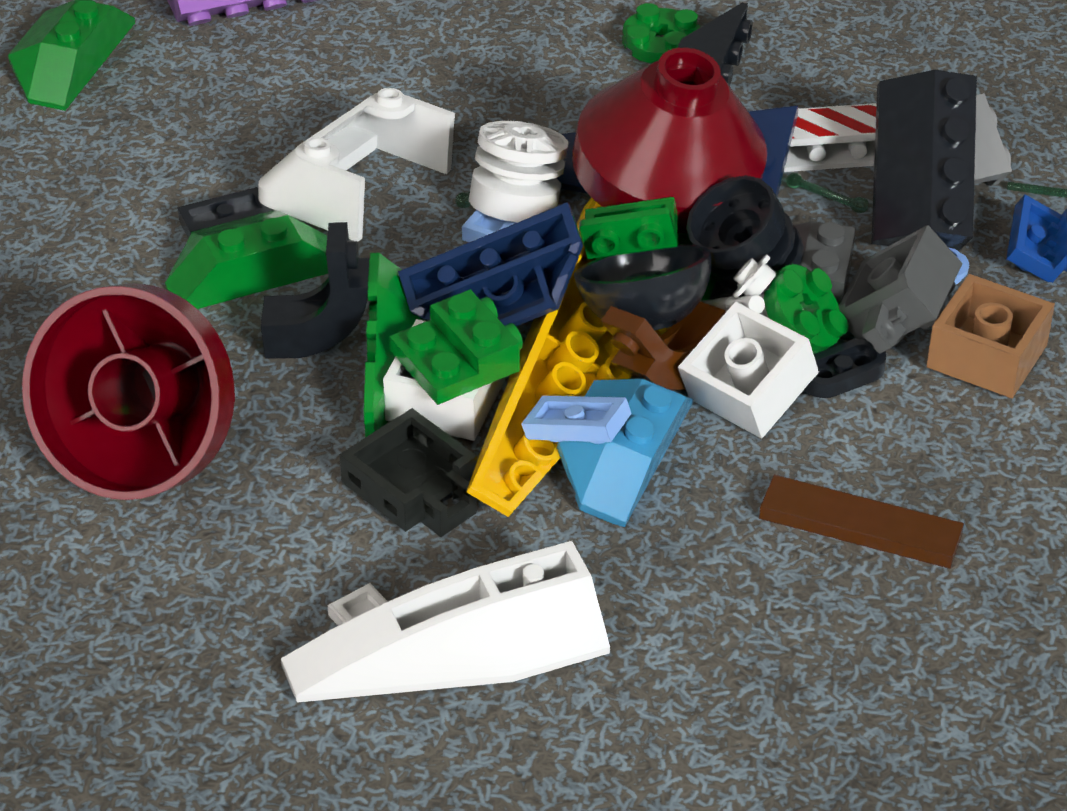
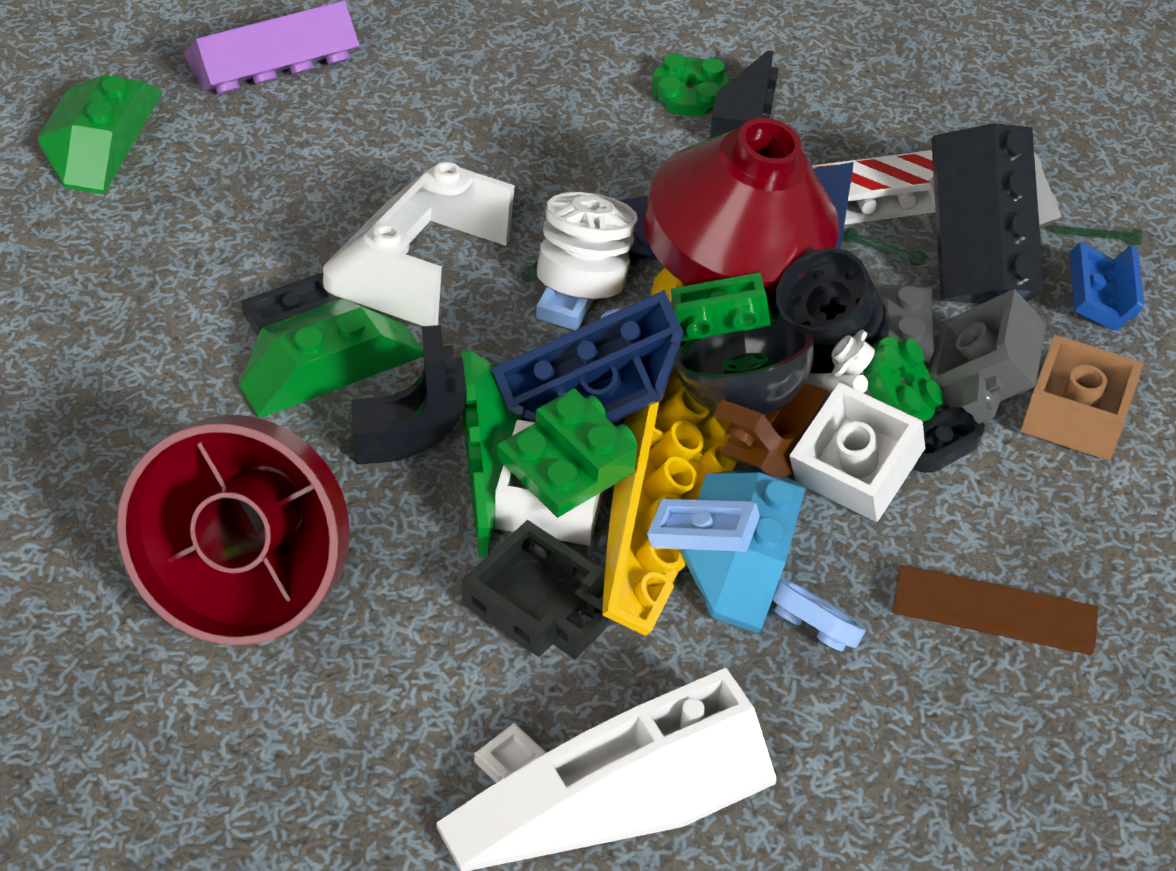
camera: 10 degrees left, 5 degrees up
(666, 503) = (834, 625): none -> light blue plate

